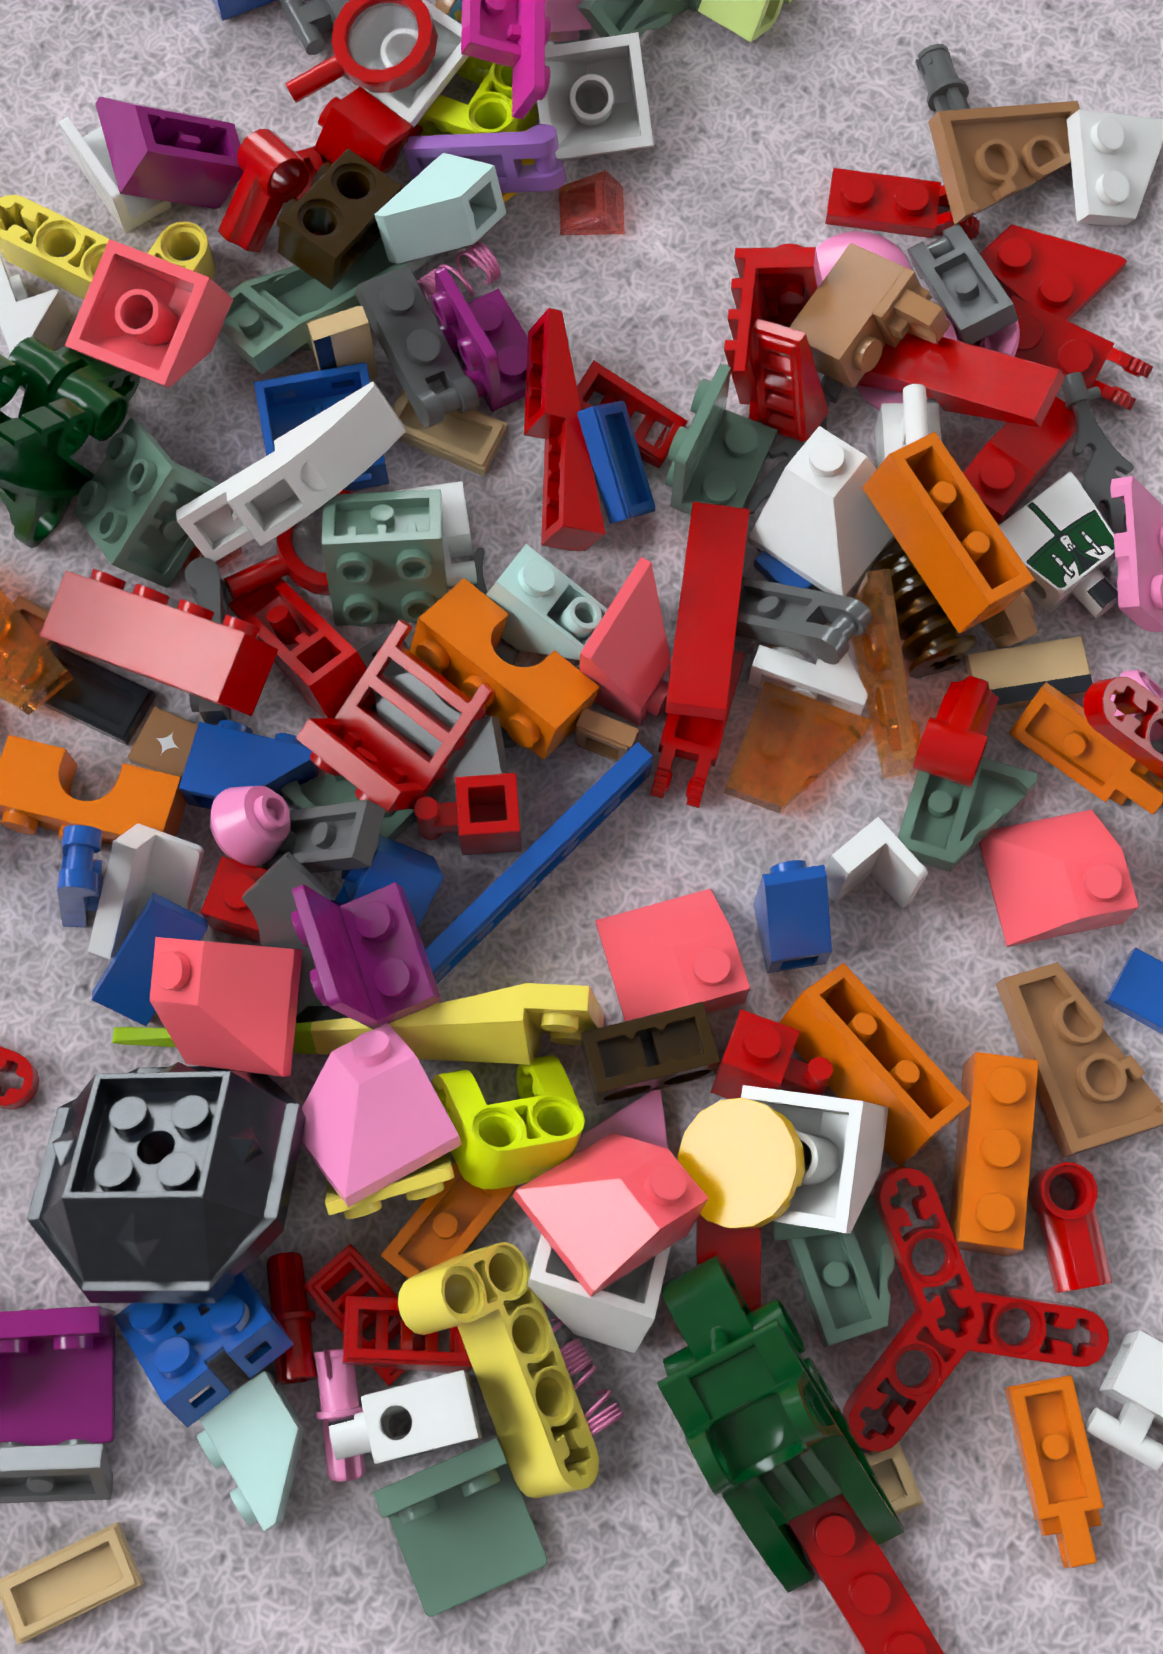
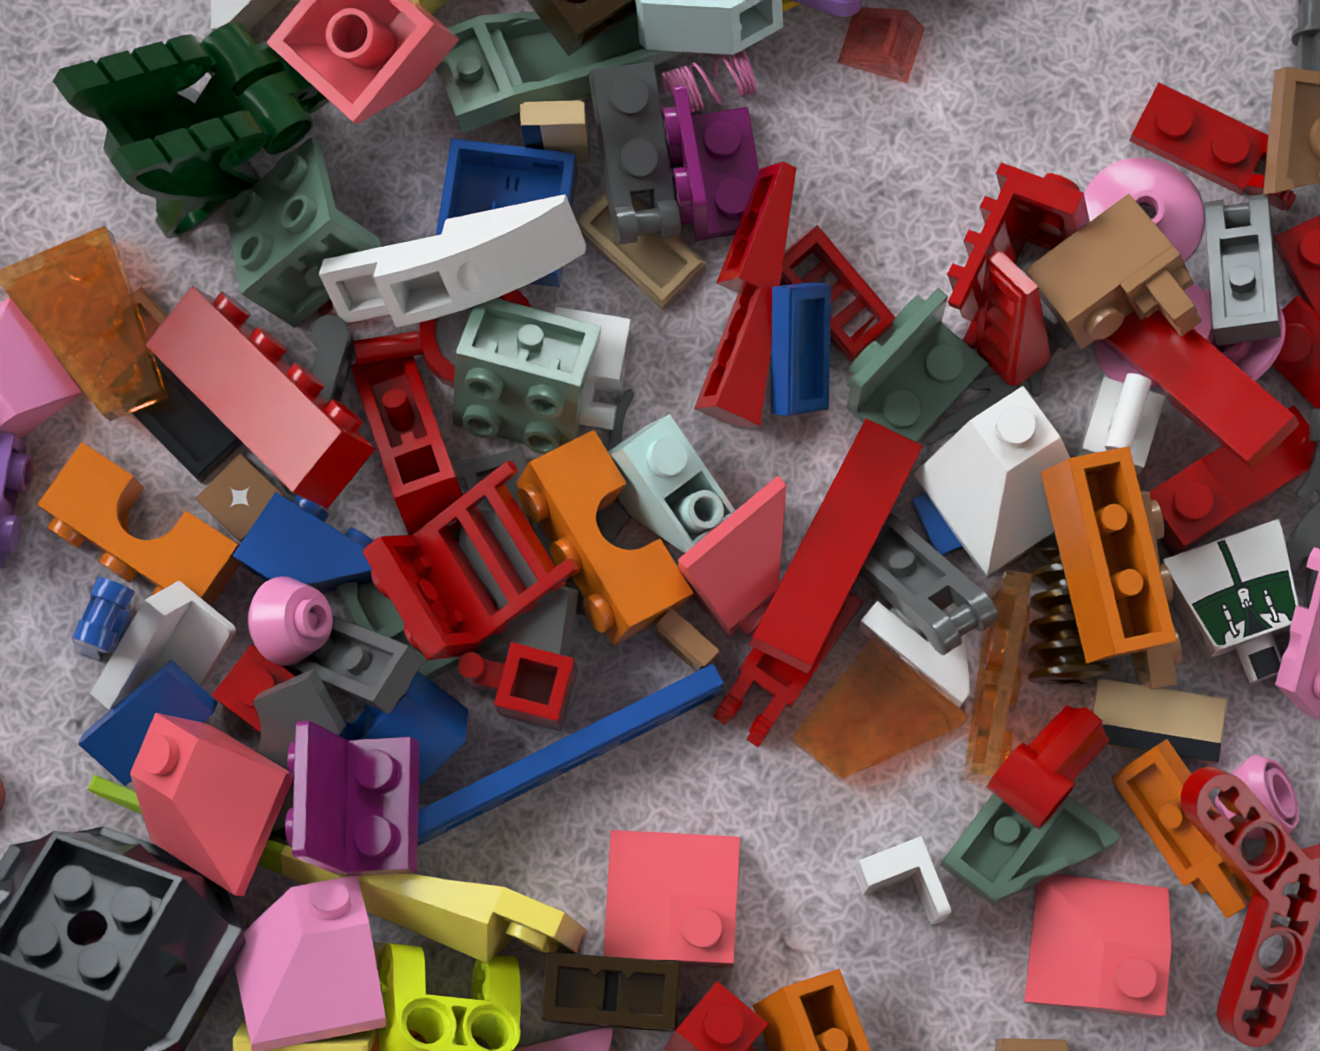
camera: 25 degrees right, 5 degrees up
(793, 916) = (807, 902): blue slope -> none

